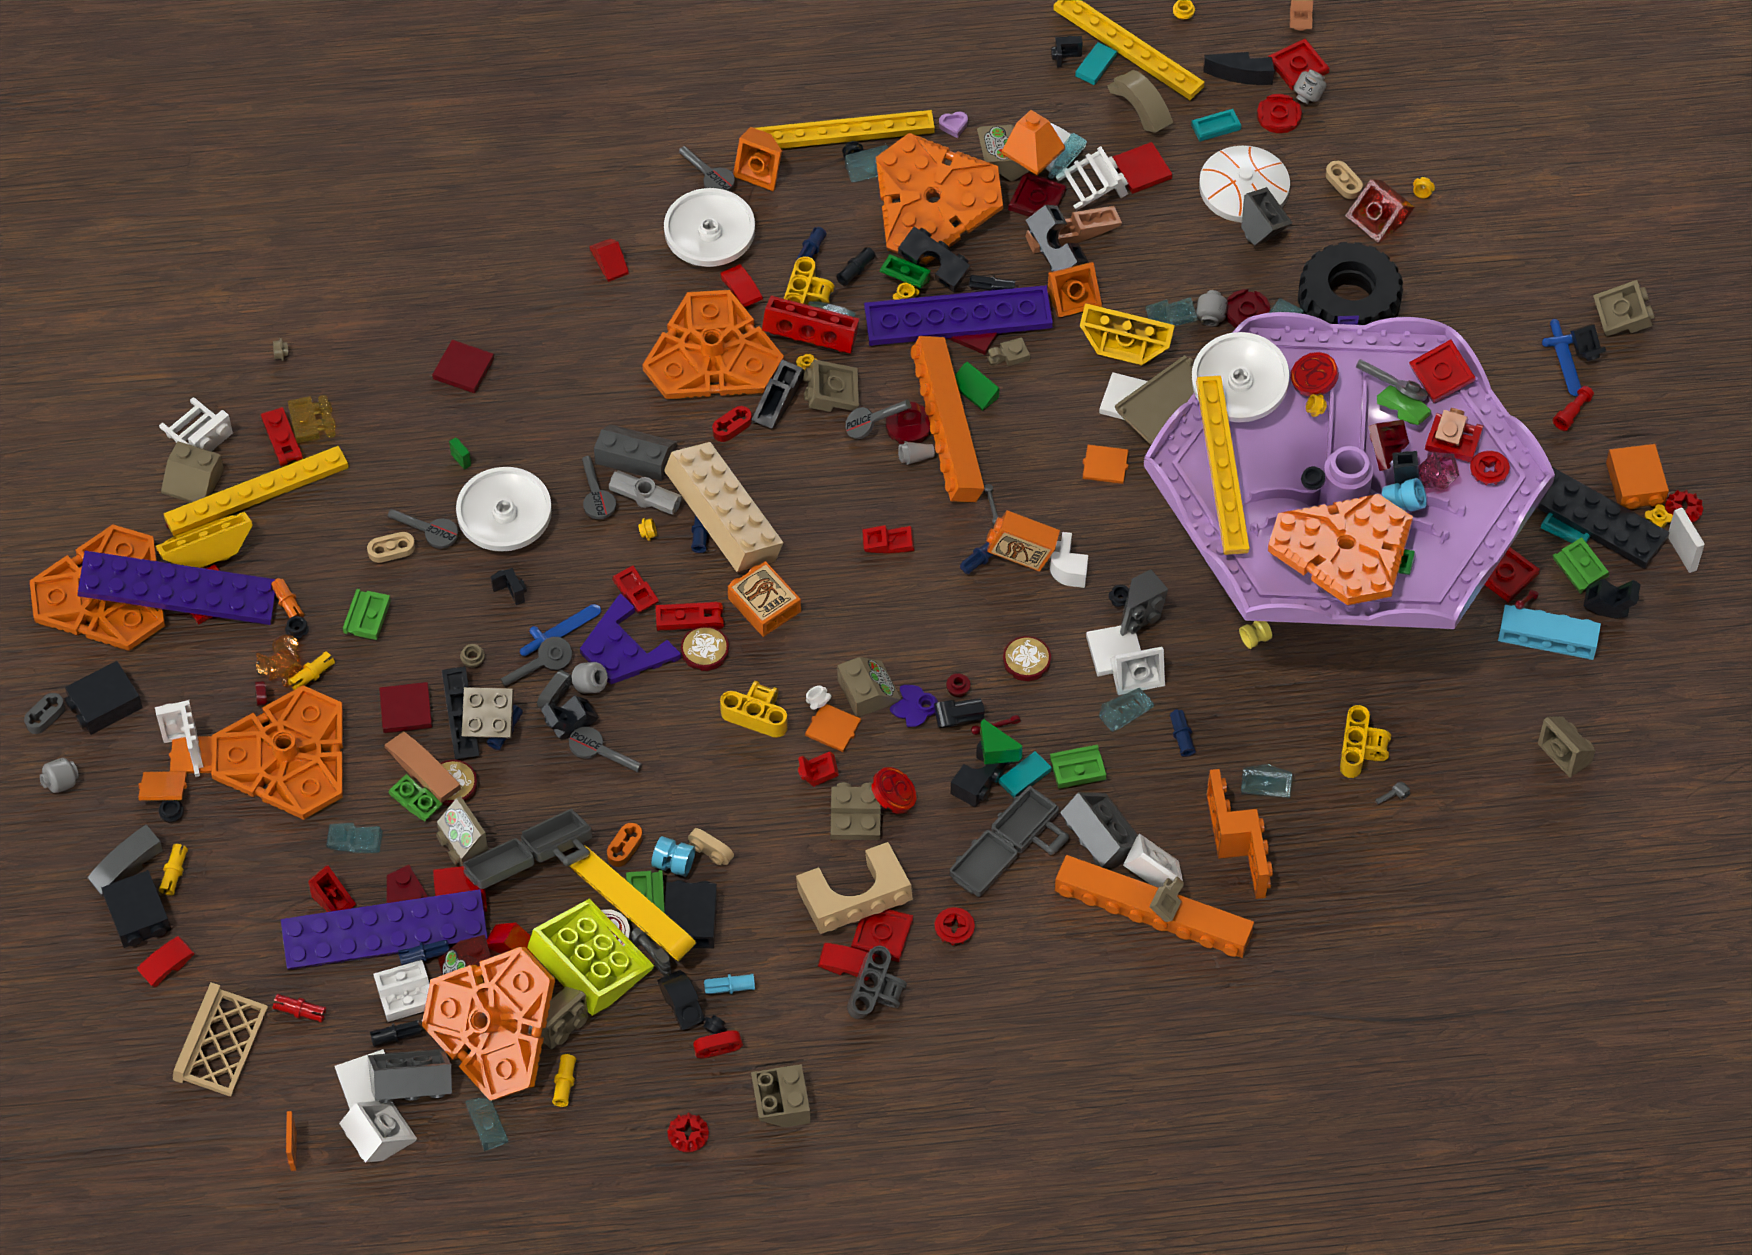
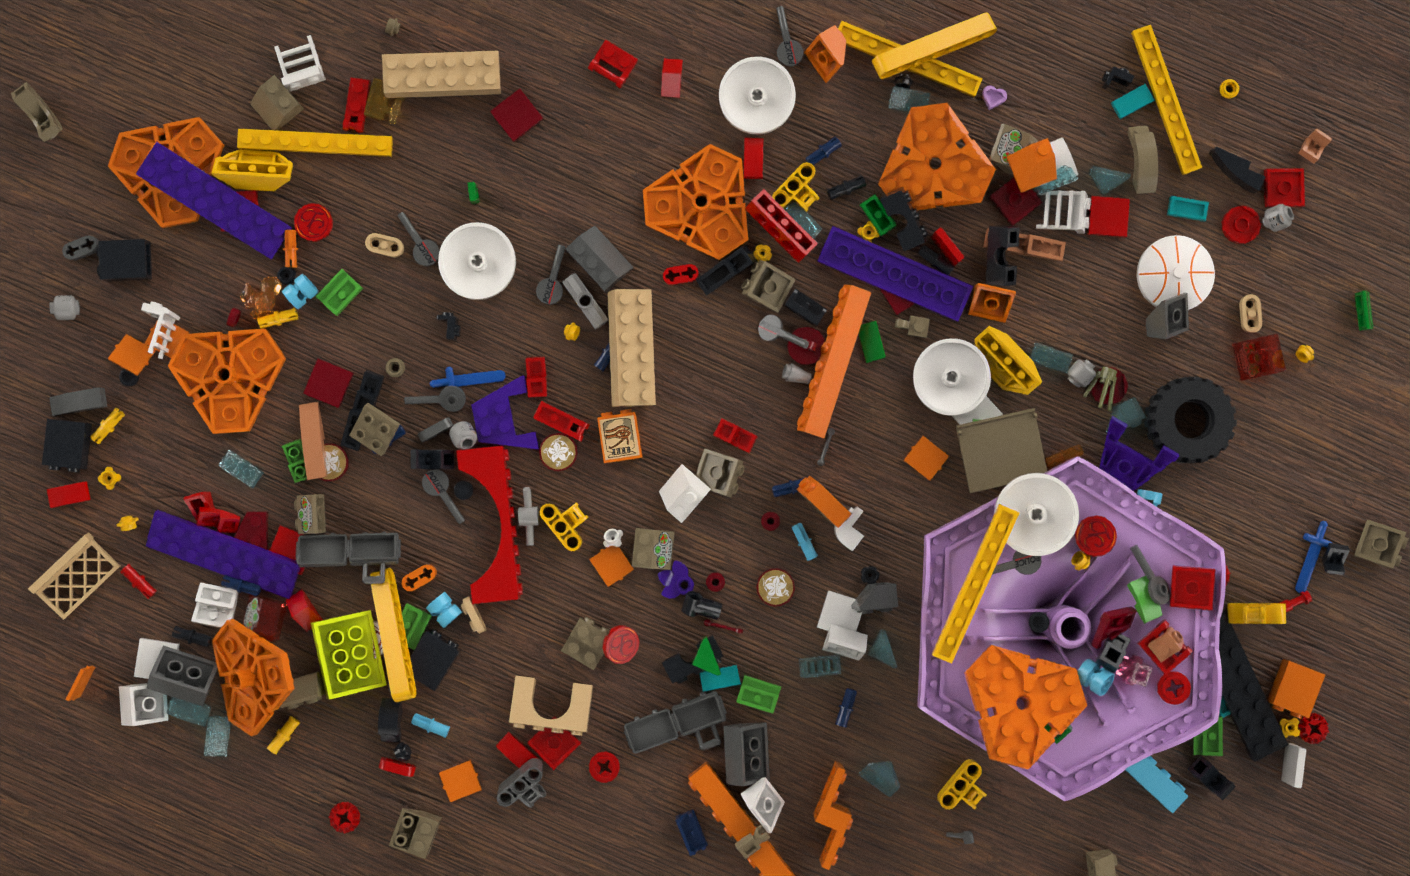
camera: 30 degrees right, 30 degrees up
(201, 916) = (103, 478): none -> yellow plate
(253, 954) = (127, 523): none -> yellow plate
(298, 565) = (313, 222): none -> red tile
(322, 630) = (306, 289): none -> medium azure wheel
(358, 895) = (218, 518): none -> red slope
(361, 361) = (441, 74): none -> tan brick
(435, 1109) = (188, 711): none -> clear light blue slope
(540, 270) = (615, 58): none -> red plate
(622, 734) = (463, 490): none -> black plate
(639, 698) = (491, 470): none -> red arch
(711, 721) = (528, 516): none -> light grey piece
(799, 1027) = (460, 781): none -> orange piece
(818, 769) = (580, 595): red bracket -> none
(863, 102) = (934, 45): none -> yellow beam
(867, 611) = (683, 493): none -> white slope
(884, 391) = (805, 307): none -> black hinge
(893, 578) = (720, 472): none -> dark tan plate
(979, 604) = (775, 525): none -> dark red plate
(995, 260) = (947, 246): none -> red tile
(1029, 599) = (804, 541): none -> medium azure axle
(1080, 372) = (951, 377): none -> white dish
(1094, 941) = (691, 832): none -> dark blue hinge
(1117, 134) = (1107, 179): none -> clear light blue slope
(1185, 657) = (882, 650): none -> clear light blue slope
(1240, 298) = (1108, 378): none -> olive plant
(1258, 430) = (1022, 563): none -> dark grey piece
(1453, 126) = (1364, 311): none -> green slope
(1551, 419) = (1256, 613): none -> yellow piece

